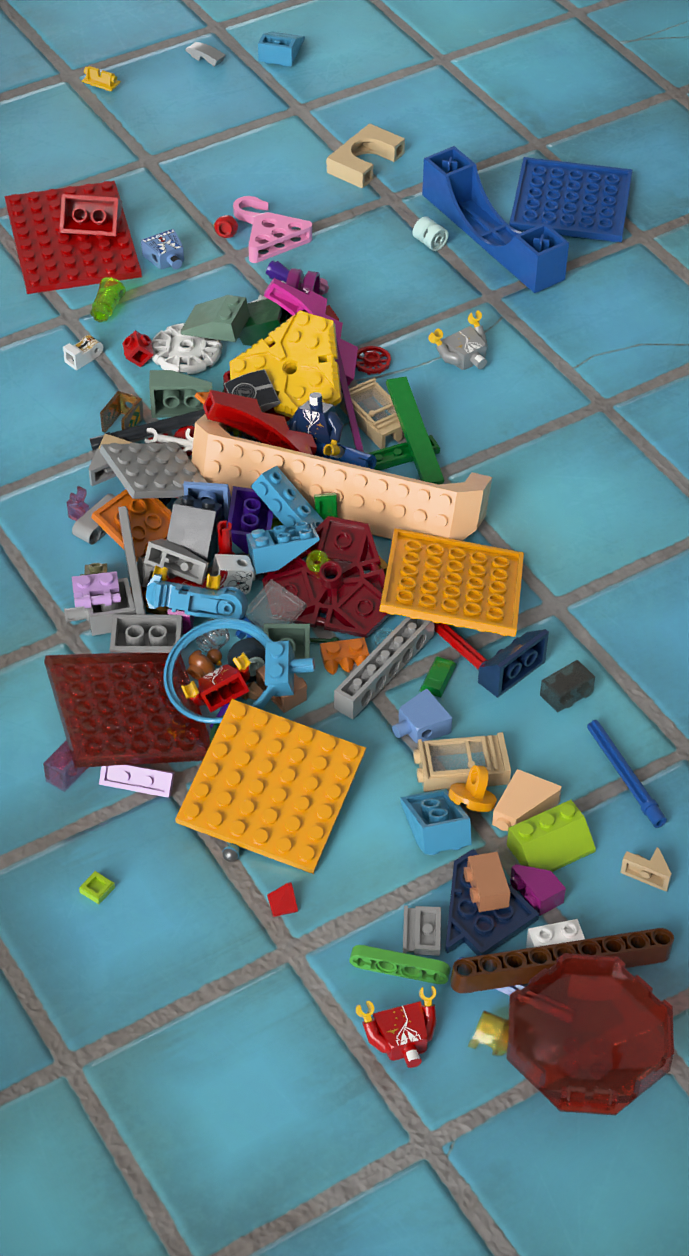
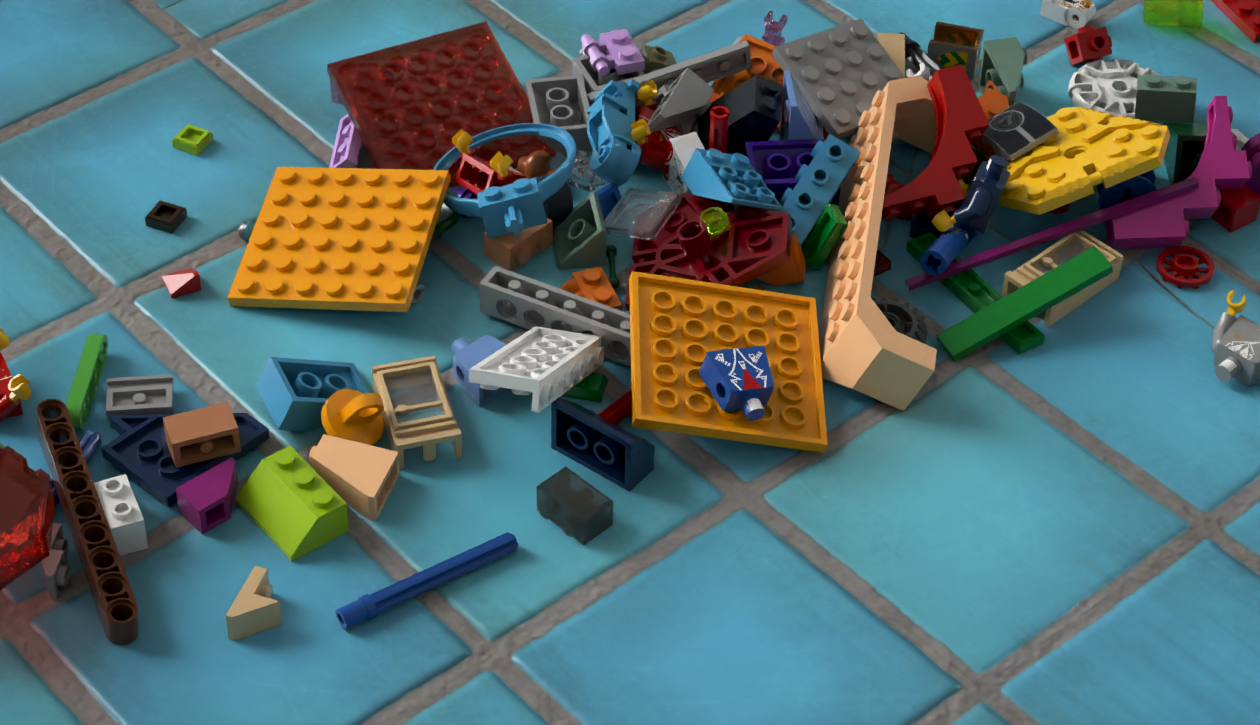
camera: 80 degrees right, 5 degrees down
(197, 909) = (166, 217): none -> dark brown tile
(463, 668) = (540, 363): none -> white bracket
(486, 571) = (739, 379): none -> blue torso

